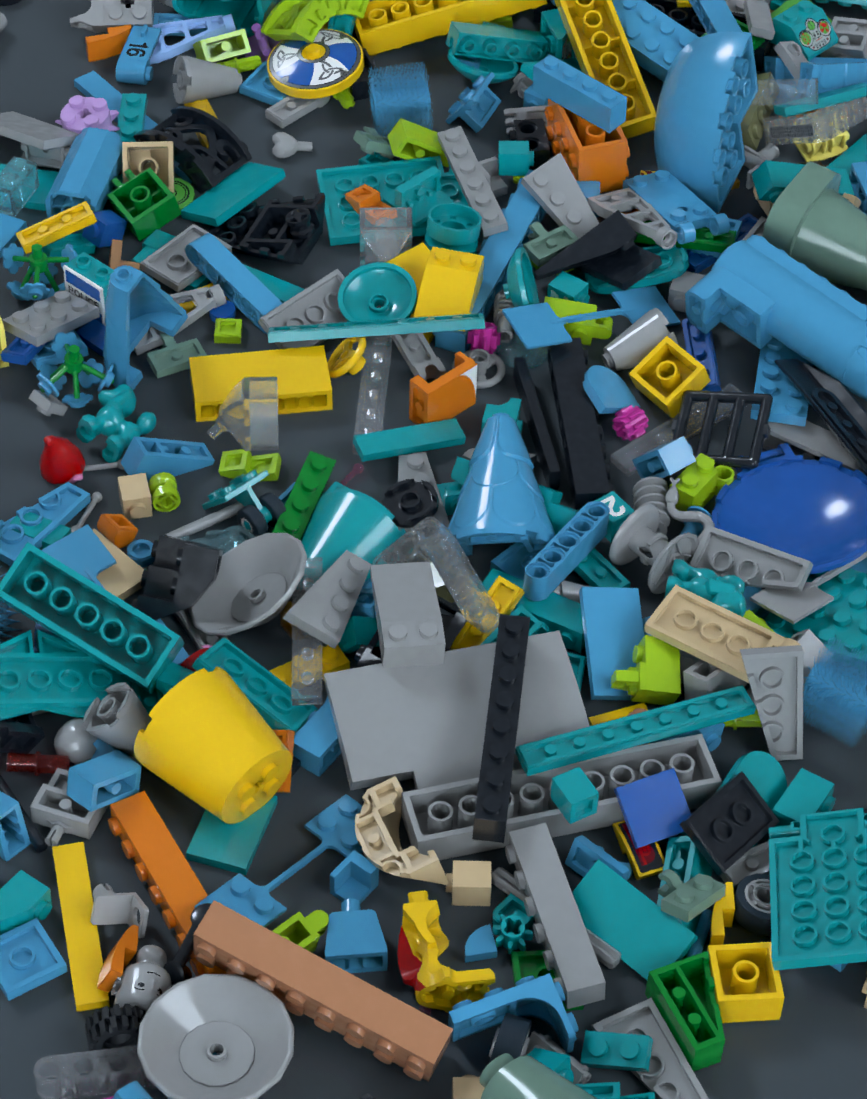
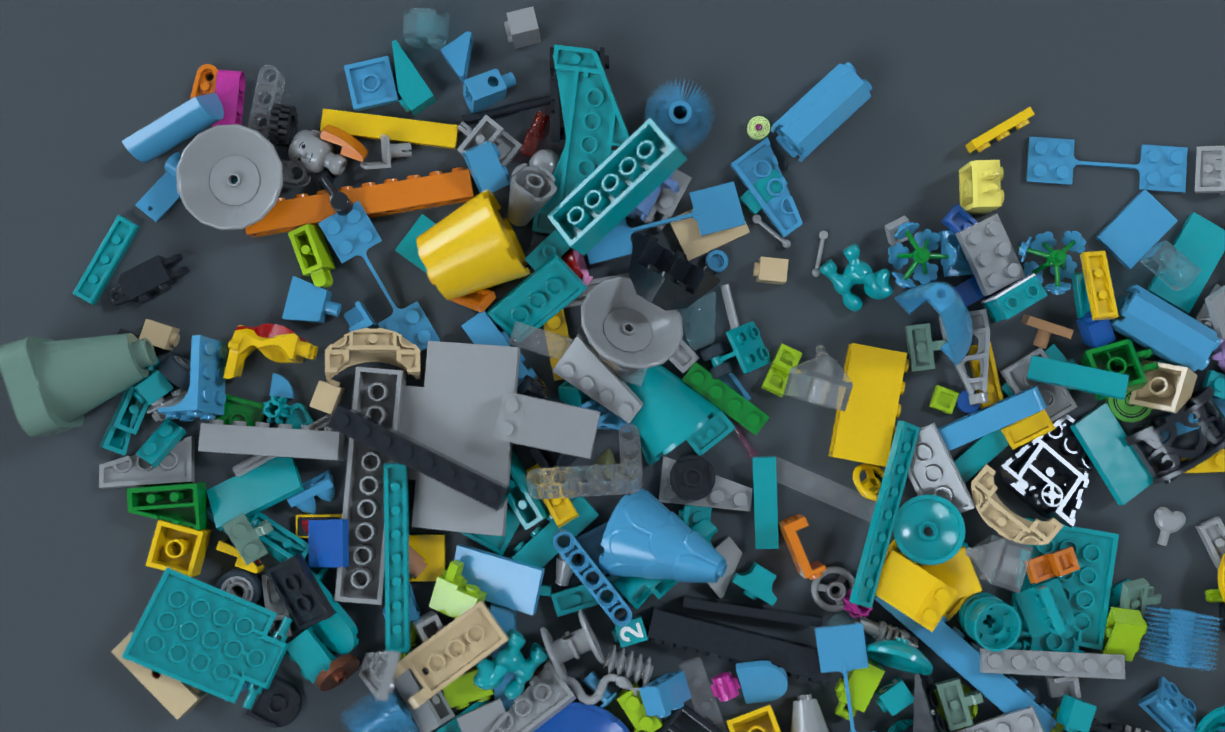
camera: 110 degrees right, 40 degrees up
(61, 461) = (827, 225): red hat -> none
(117, 529) = (742, 248): orange brick -> none
(164, 219) = (1077, 377): none -> teal tile
(164, 492) = (769, 294): lime wheel -> none
(165, 455) = (805, 306): dark azure slope -> none
(238, 249) = (1028, 429): none -> yellow tile
(322, 991) = (248, 257): nougat brick -> none
(340, 248) = (1003, 519): none -> tan windscreen
(419, 355) = (850, 544): light grey plate -> none
(574, 795) = (346, 487): teal panel -> none
(796, 757) = (339, 672): none -> copper plate

